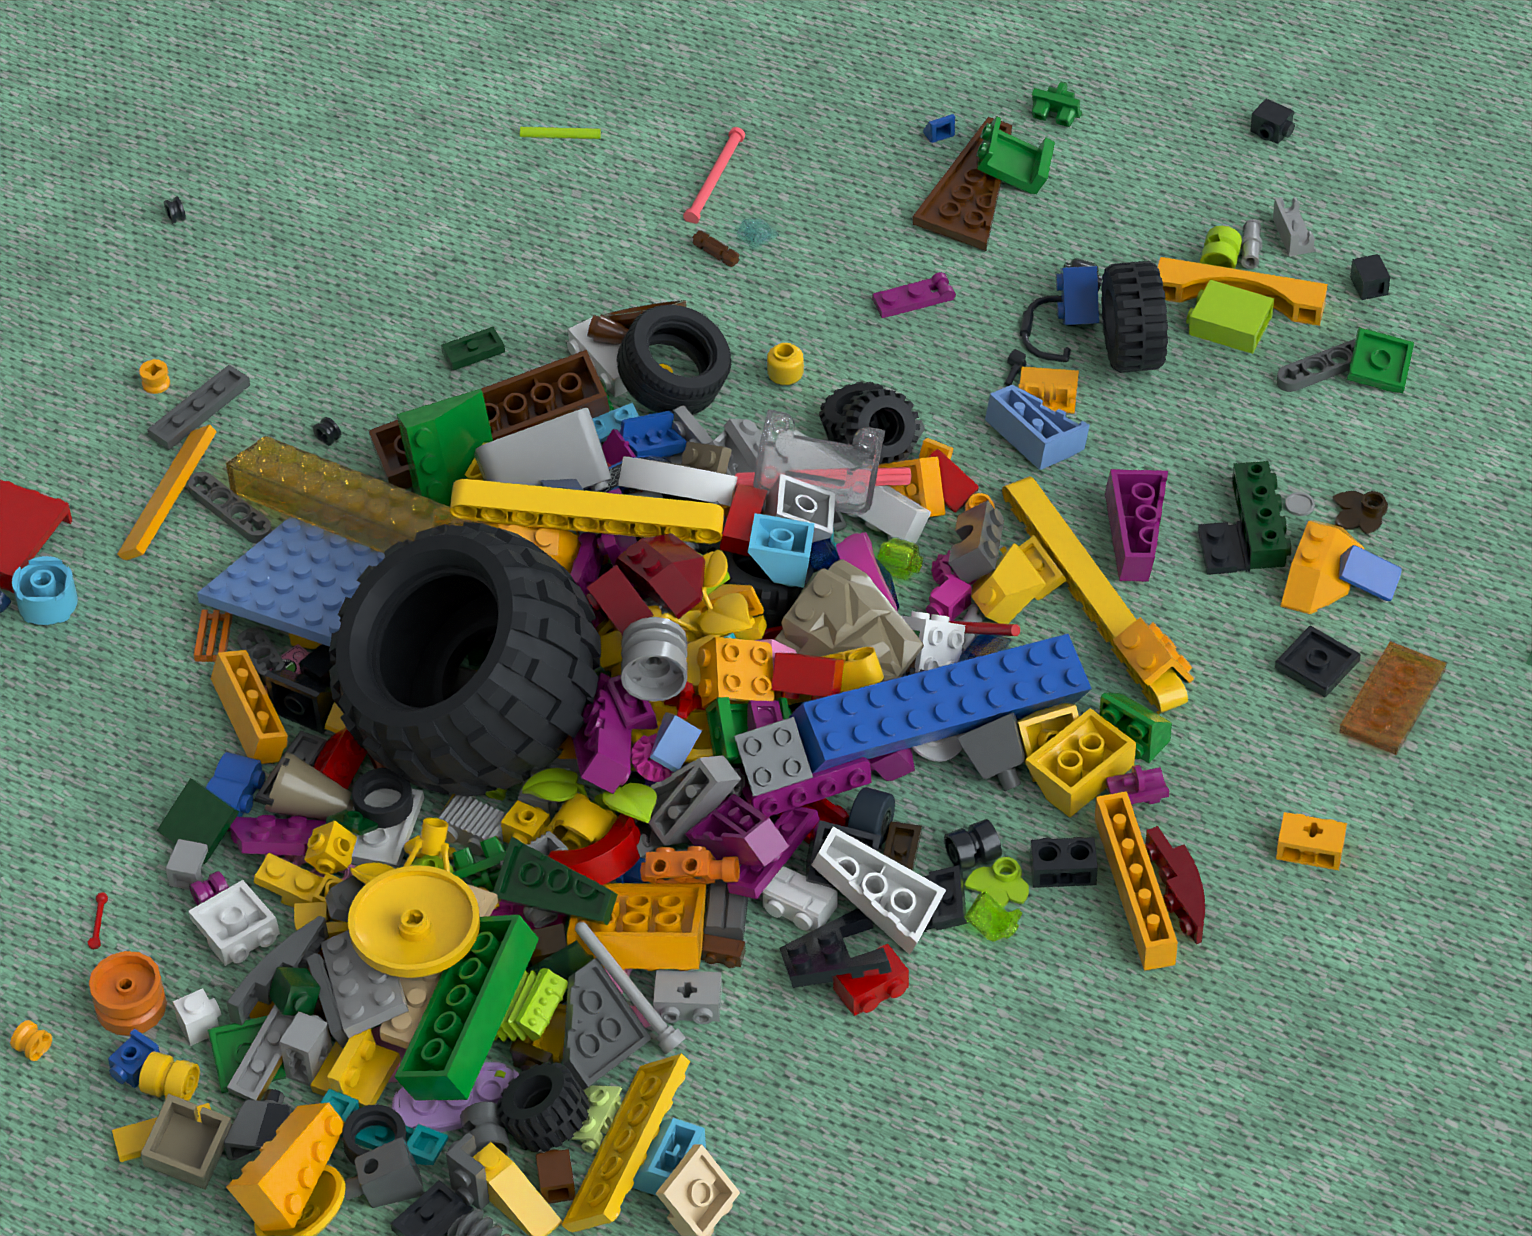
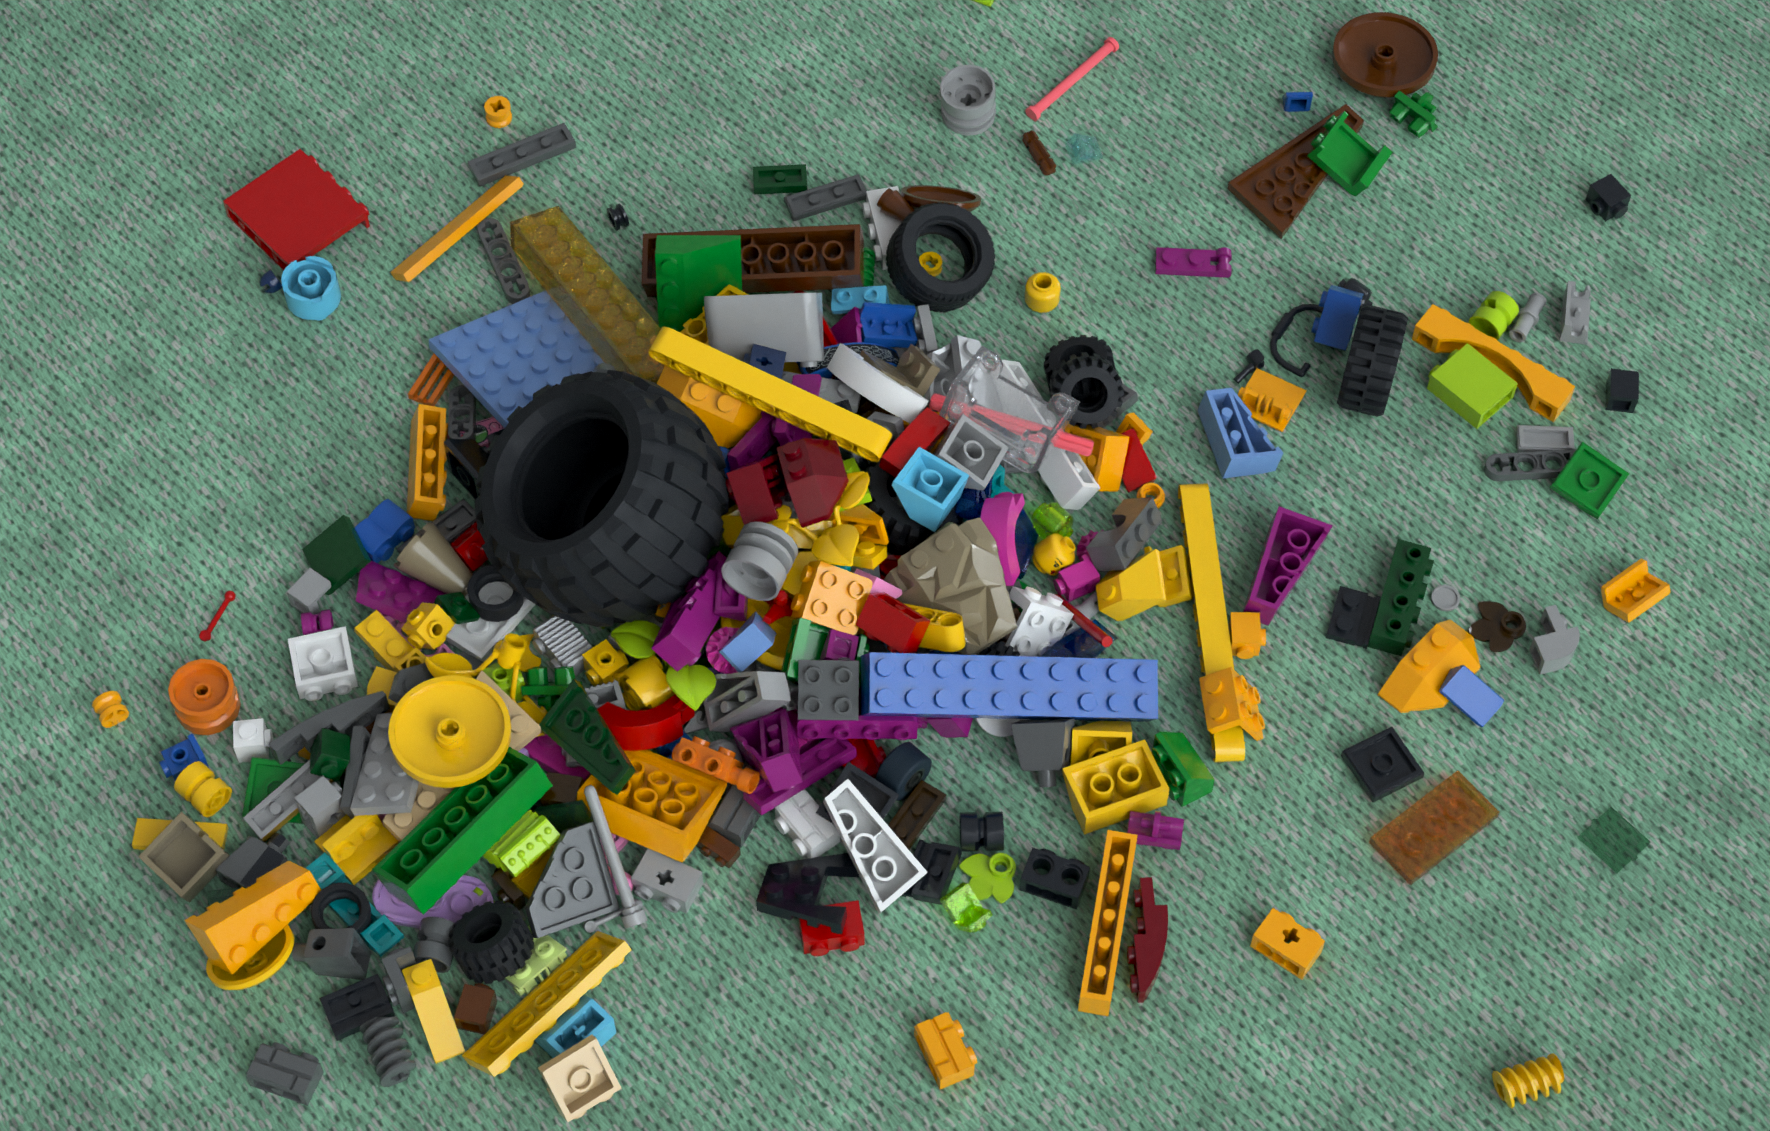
camera: 20 degrees right, 10 degrees up
(526, 351) = (825, 197): none -> dark grey tile
(626, 220) = (968, 100): none -> light grey wheel
(630, 1064) = (590, 925): none -> light grey hinge
(916, 584) = (1053, 554): none -> yellow head
(1003, 63) = (1385, 54): none -> reddish brown dish
(1037, 1047) = (945, 1050): none -> light orange brick
(1134, 591) = (1246, 634): none -> light orange brick
(1318, 340) = (1544, 438): none -> light grey tile
(1422, 505) = (1557, 646): none -> light grey brick
(1469, 440) = (1633, 591): none -> light orange bracket

